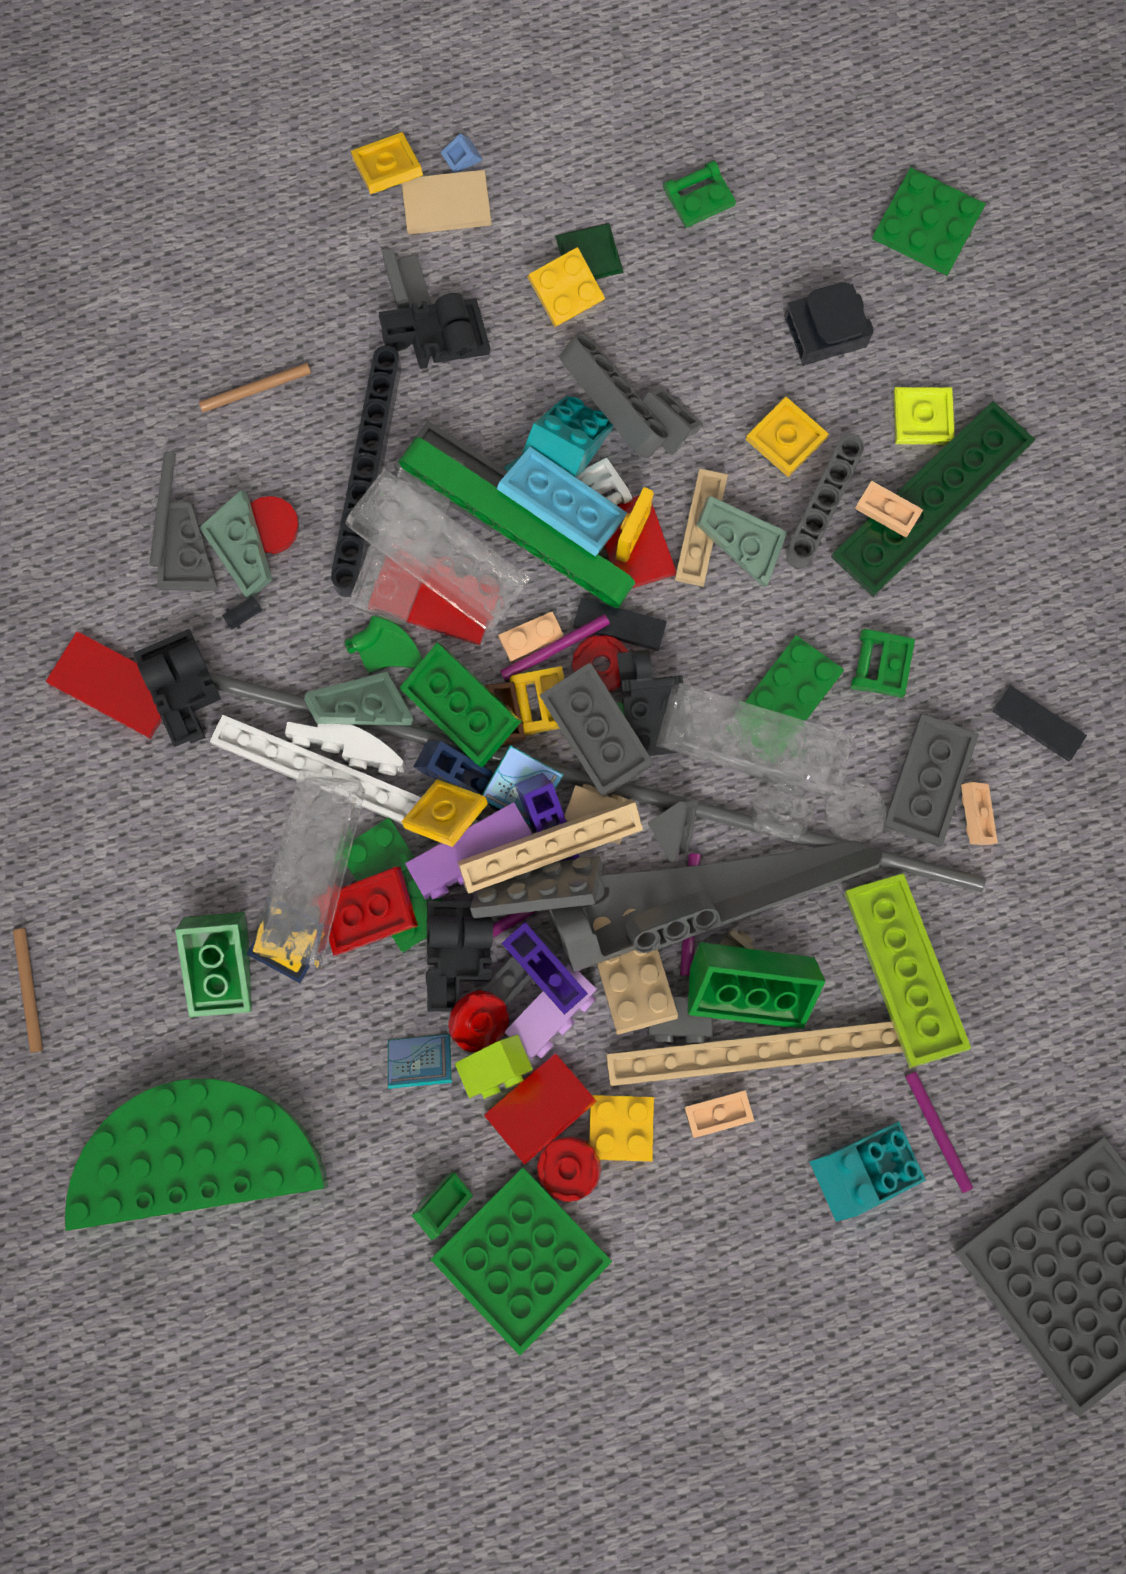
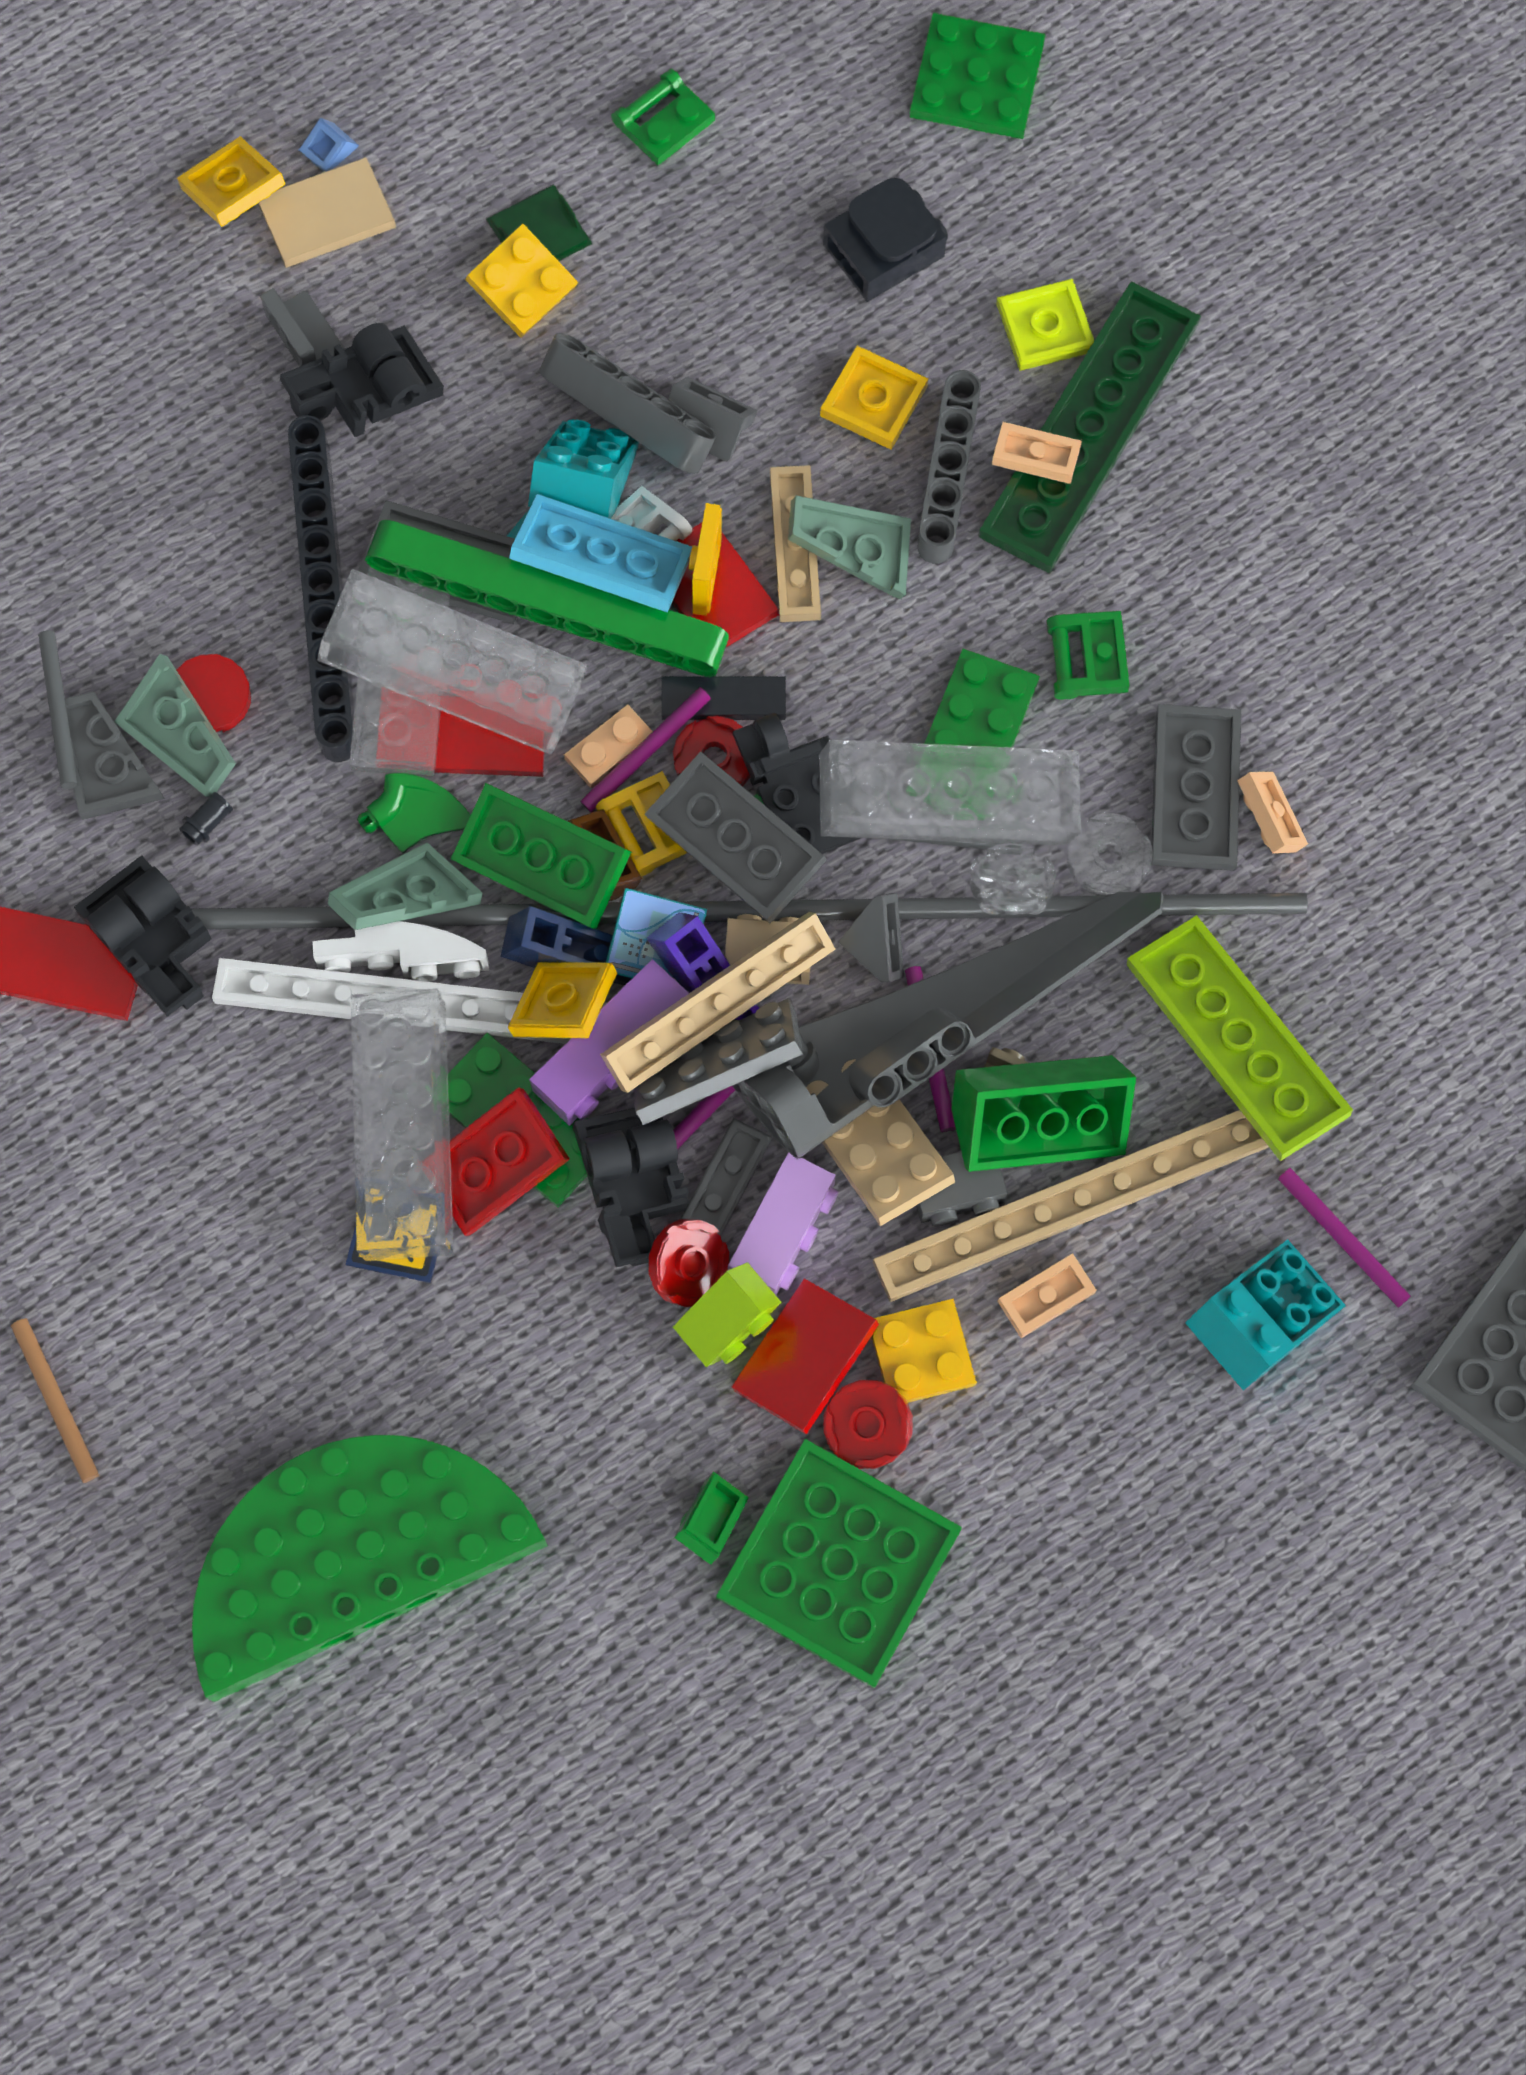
camera: 15 degrees left, 5 degrees down
(215, 963) = (307, 1291): green slope -> none
(254, 387) = (136, 519): medium nougat bar -> none
(419, 1061) = (624, 1338): piece -> none
(544, 968) = (756, 1164): dark purple slope -> none
(1039, 723) = (1316, 677): black tile -> none

